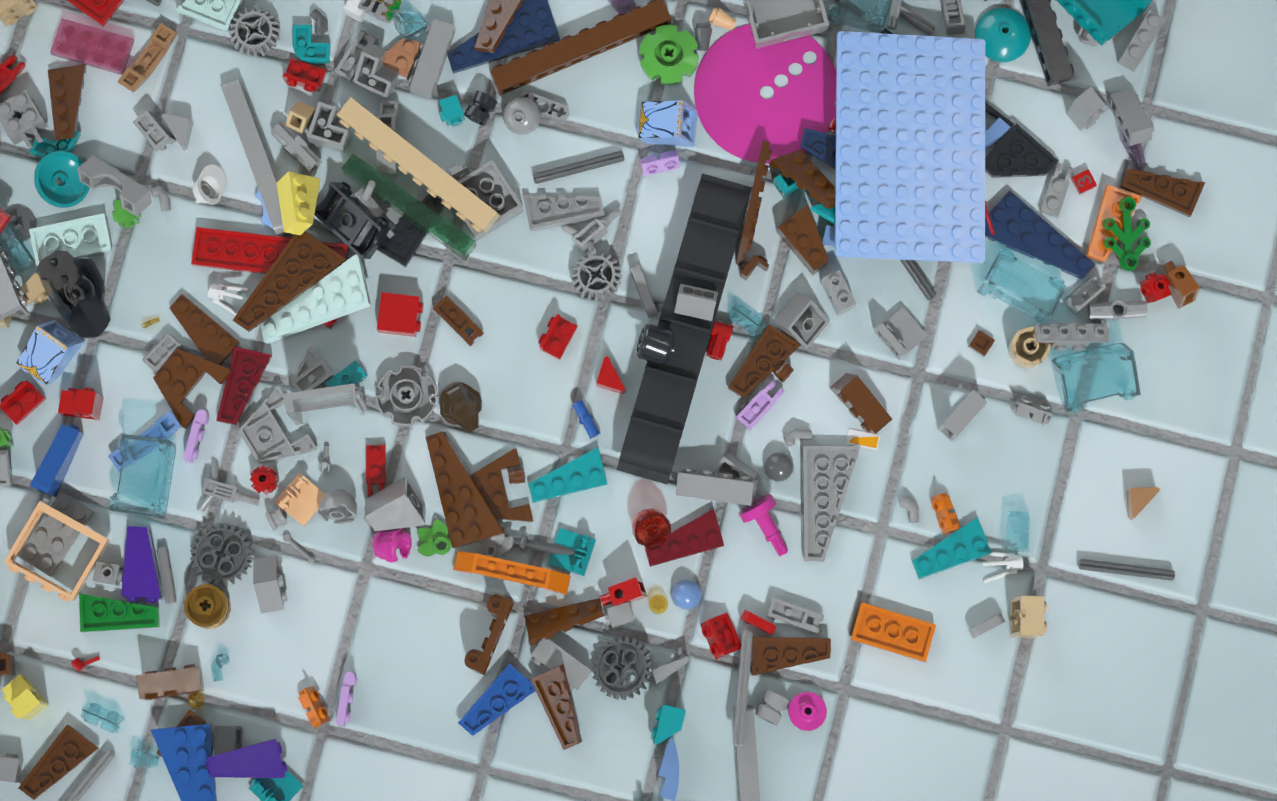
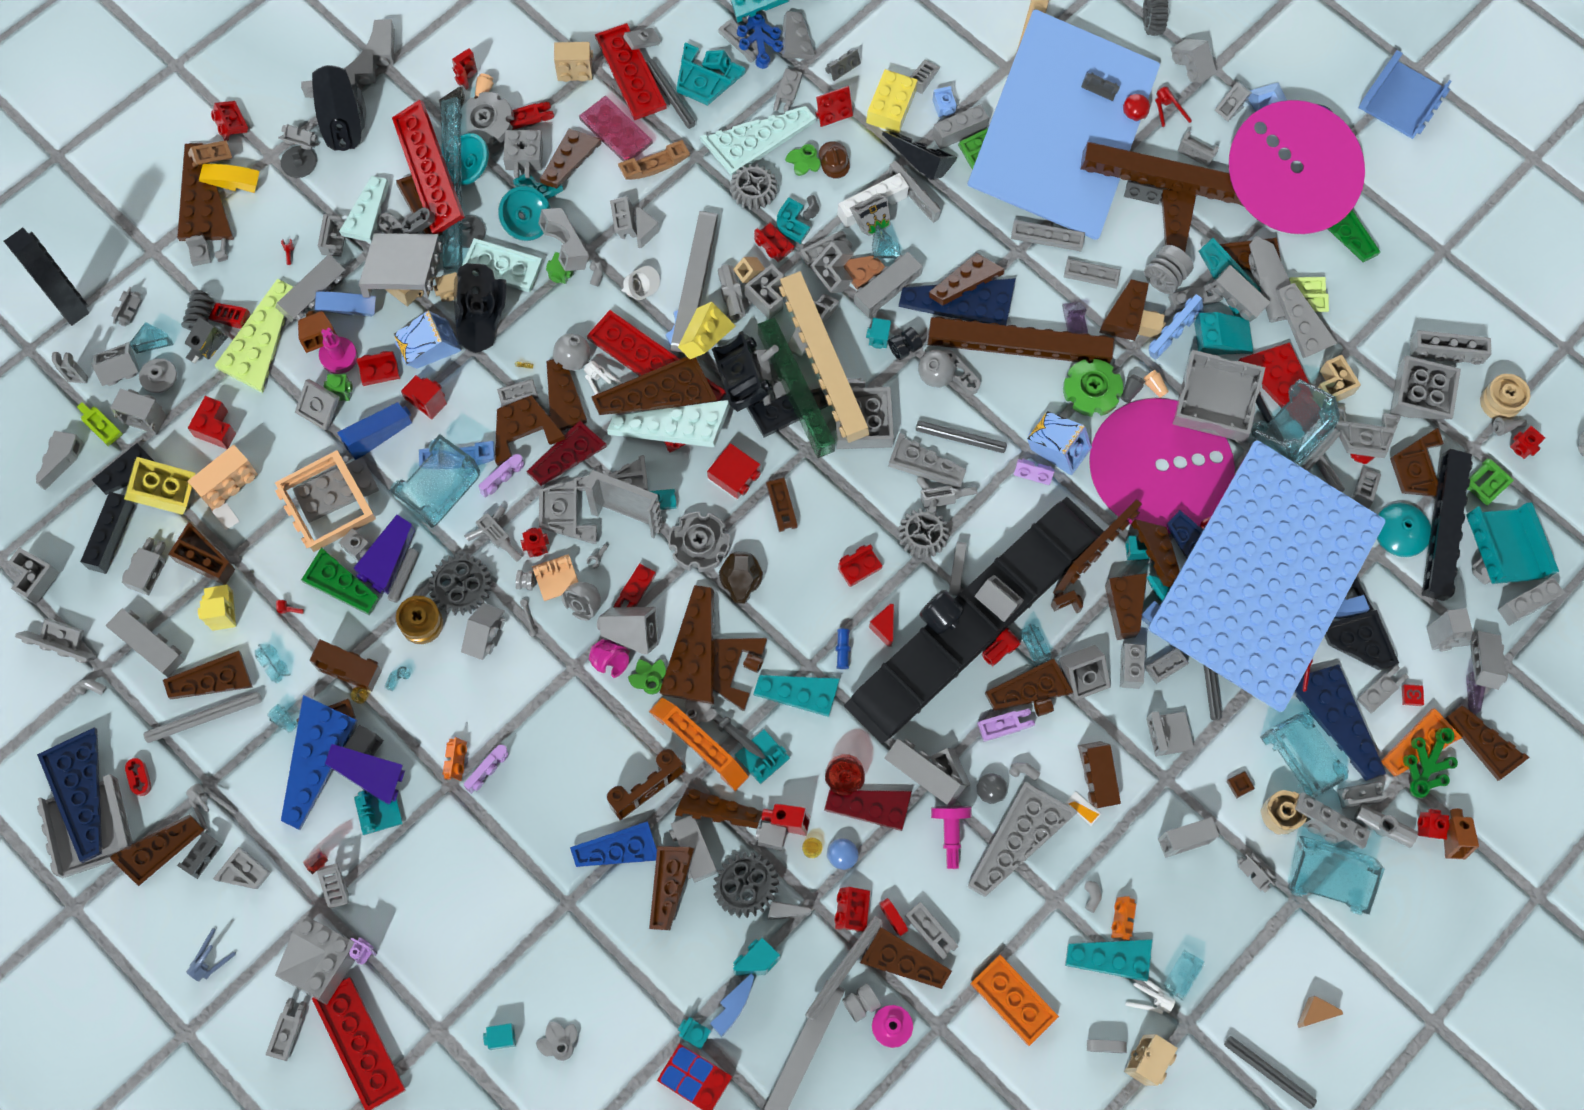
camera: 30 degrees right, 10 degrees down
(187, 287) = (571, 352): none -> light grey cylinder
(866, 275) = (1166, 665): none -> light grey plate

